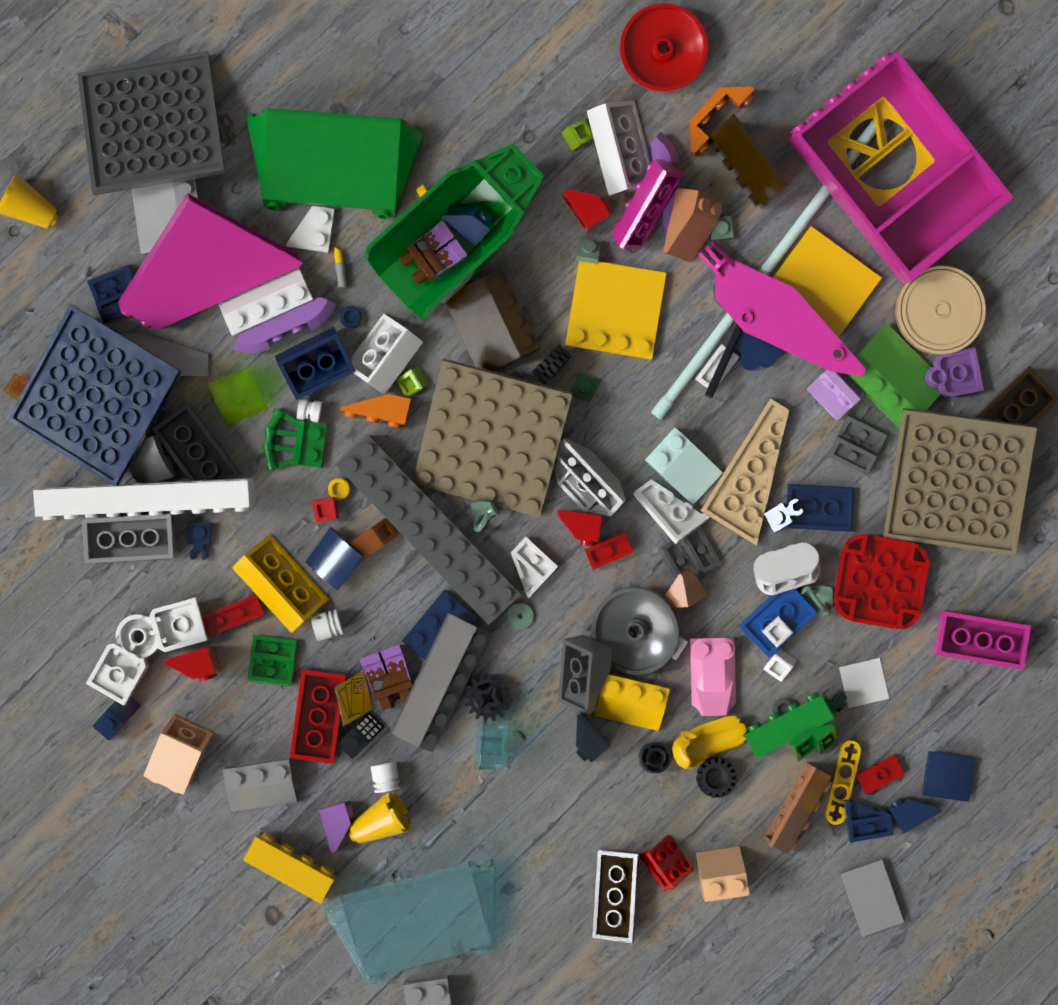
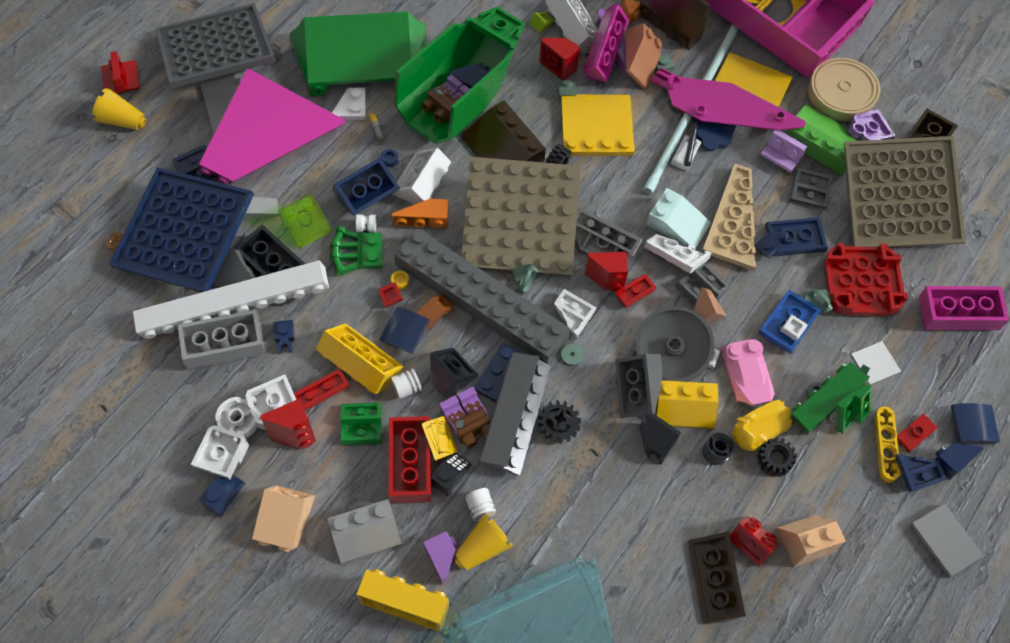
camera: 15 degrees left, 25 degrees down
(29, 142) = (120, 75): none -> red bracket
(257, 337) = (336, 166): medium lavender brick -> none
(265, 301) = (320, 155): white slope -> none
(379, 616) = (450, 371): none -> black slope
(412, 382) = (446, 191): lime slope -> none
(490, 745) = (570, 457): clear light blue slope -> none
(584, 387) = (587, 179): dark green plate -> none
(780, 664) = (802, 358): white slope -> none
(787, 568) = (787, 278): white brick -> none
(797, 808) = (857, 466): nougat slope -> none

